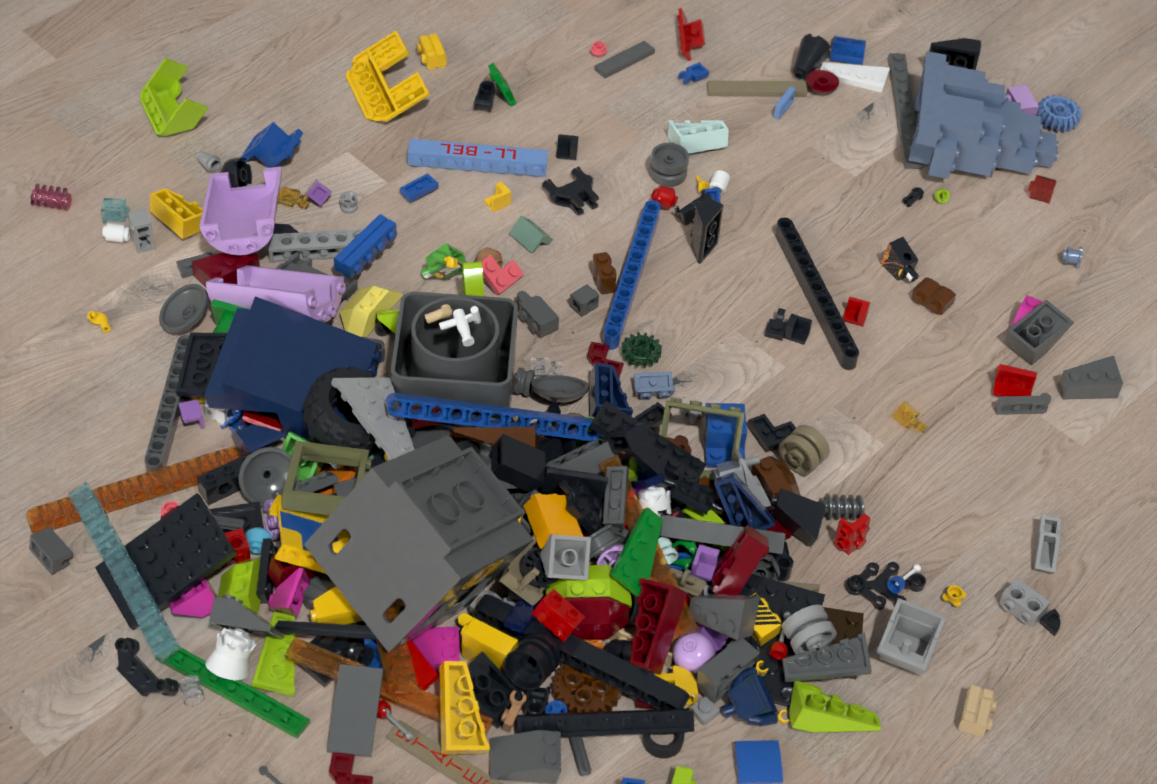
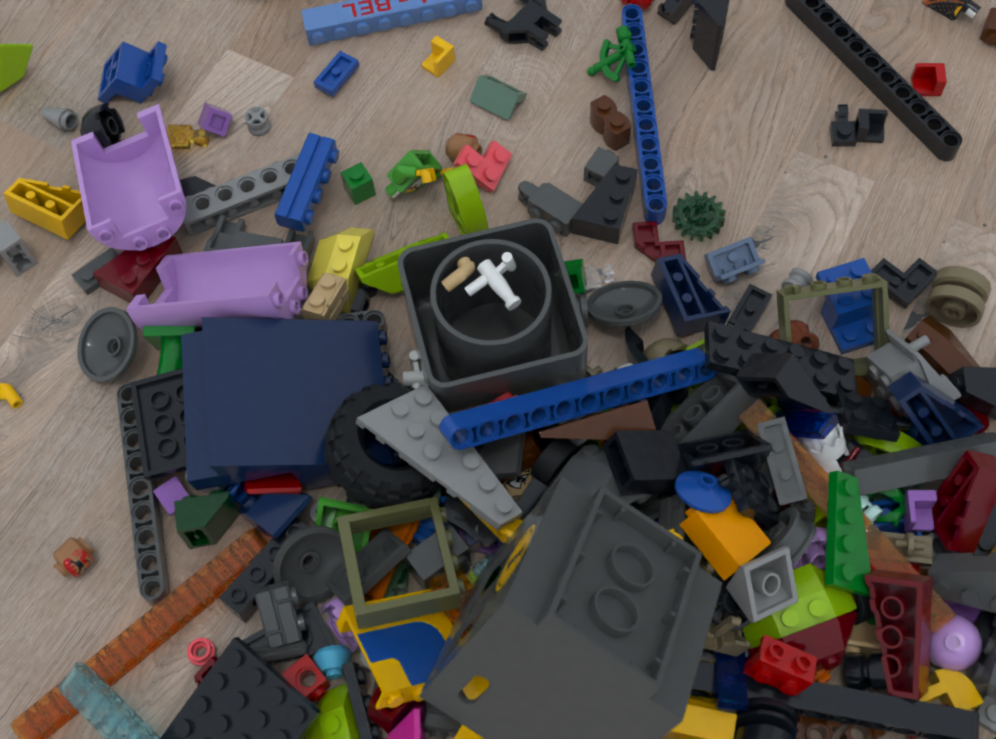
camera: 10 degrees left, 15 degrees up
(108, 429) = (73, 557): none -> medium nougat head
(207, 430) = (205, 518): none -> dark green slope
(233, 495) = (279, 613): none -> dark grey brick
(349, 319) = (326, 298): none -> tan brick
(373, 332) = (361, 301): none -> black tile
(403, 260) = (358, 183): none -> green brick
(527, 357) = (577, 275): none -> green brick
(547, 488) = (702, 492): none -> blue dish
(577, 325) = (607, 206): none -> black wedge
(633, 230) = (624, 53): none -> green piece

